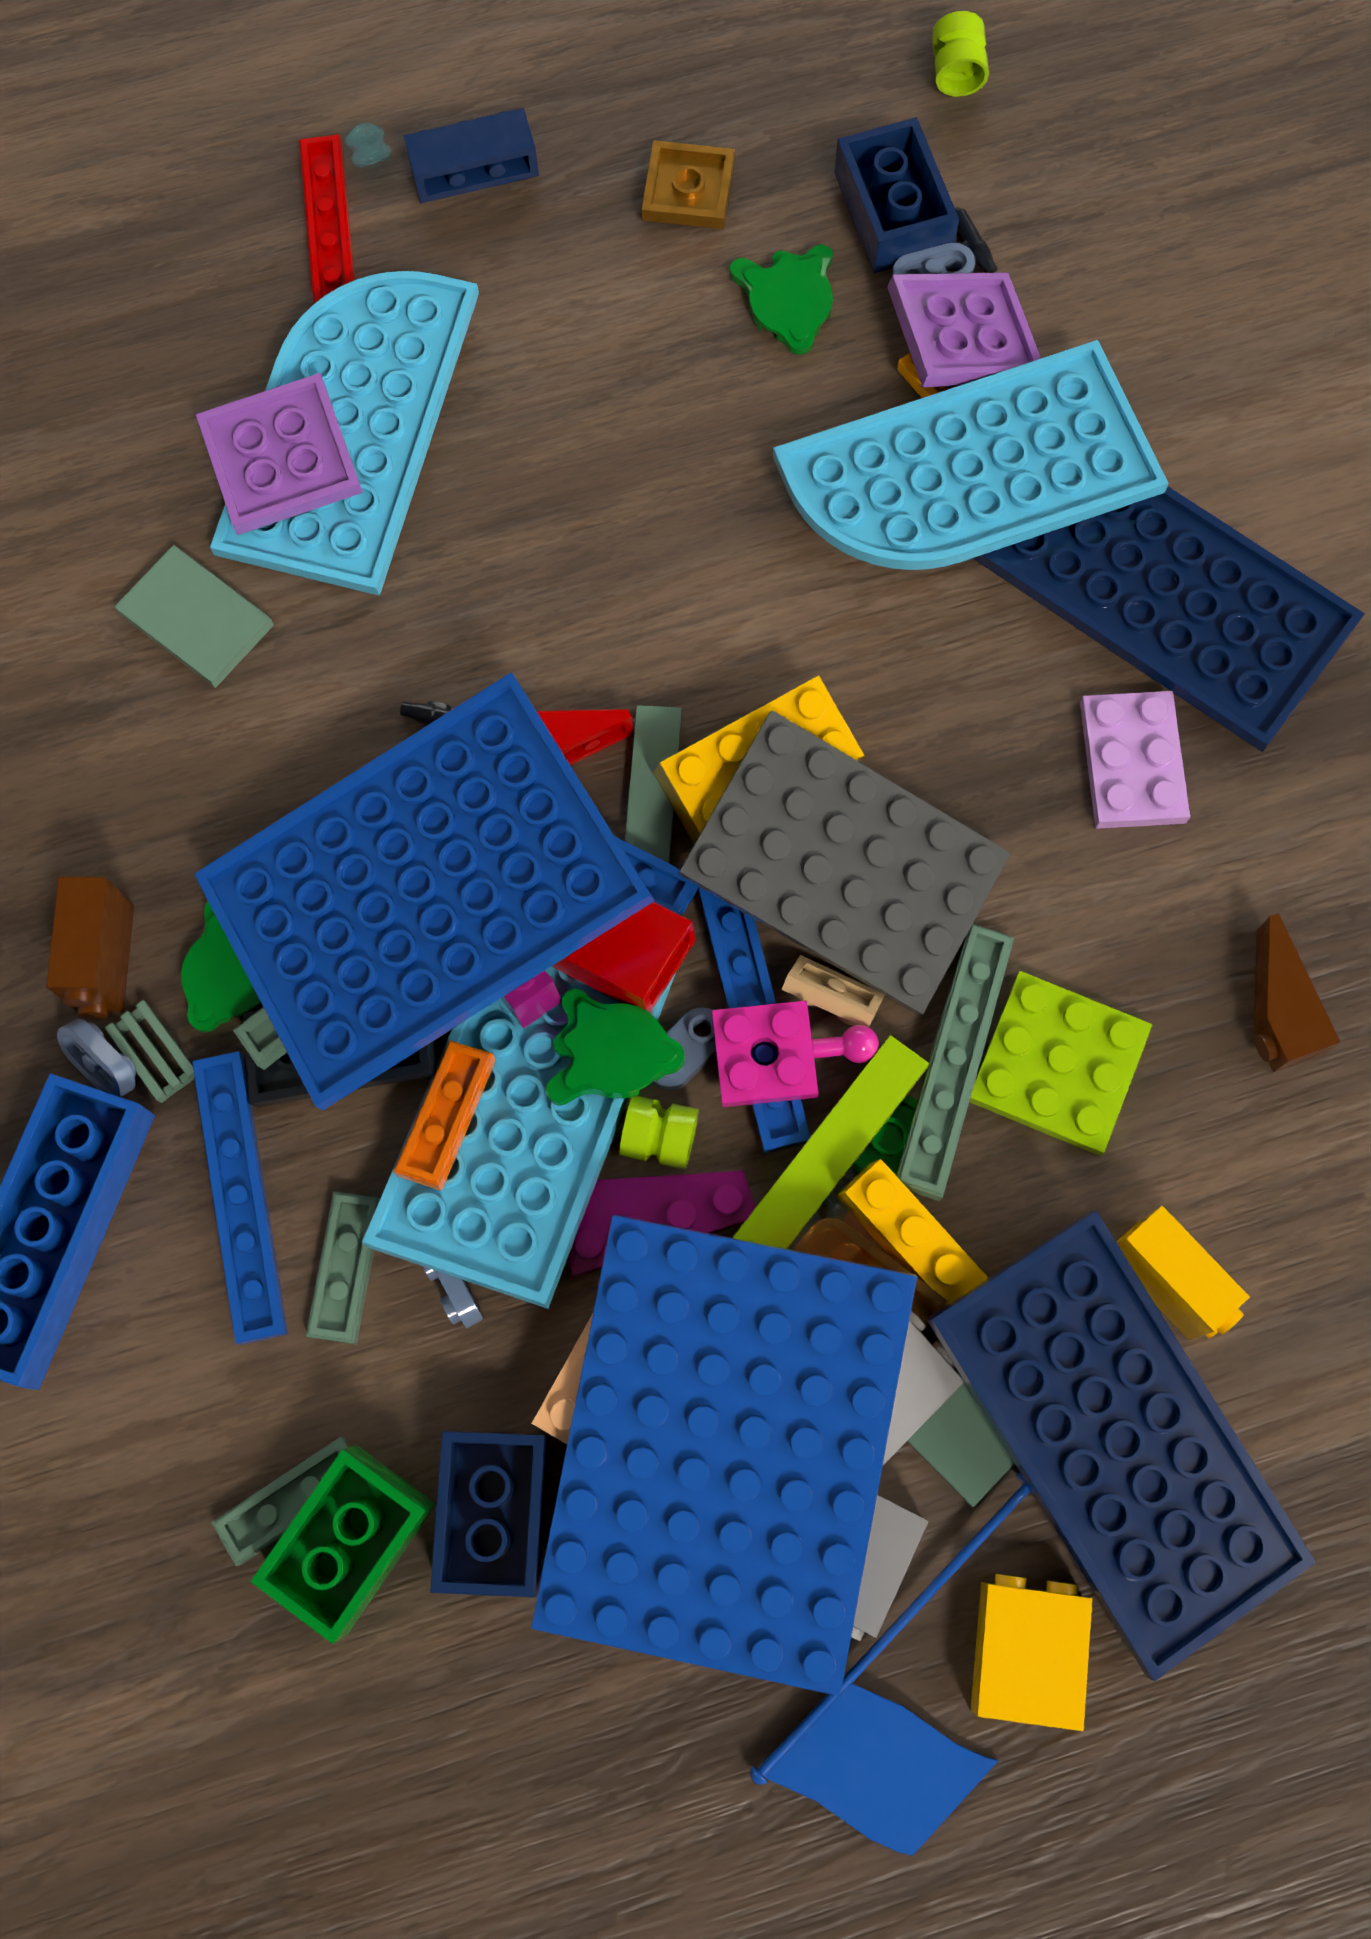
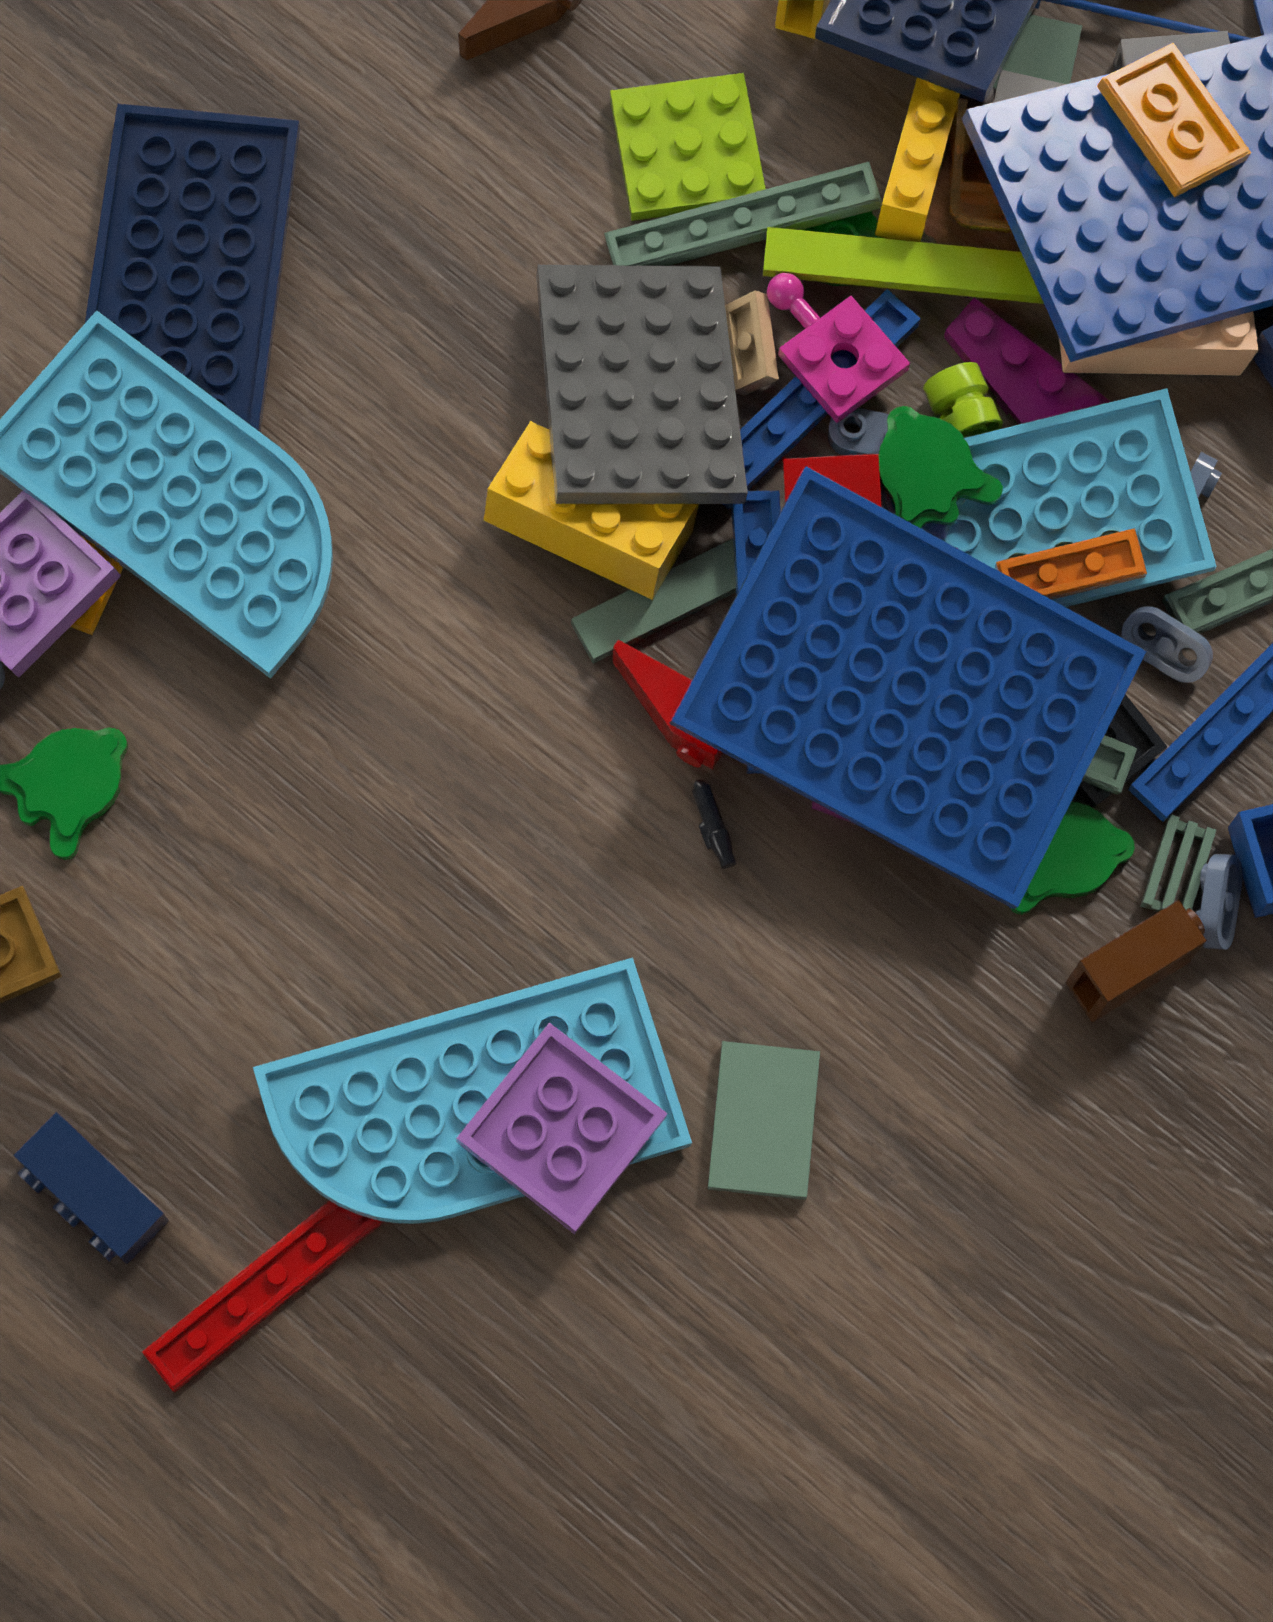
camera: 130 degrees left, 0 degrees up
(335, 1167) = (1166, 646): none -> sand blue plate
(367, 145) = (122, 1313): clear light blue plate -> none
(794, 1484) = (1173, 119): none -> light orange tile
(1134, 760) = (373, 225): lavender plate -> none

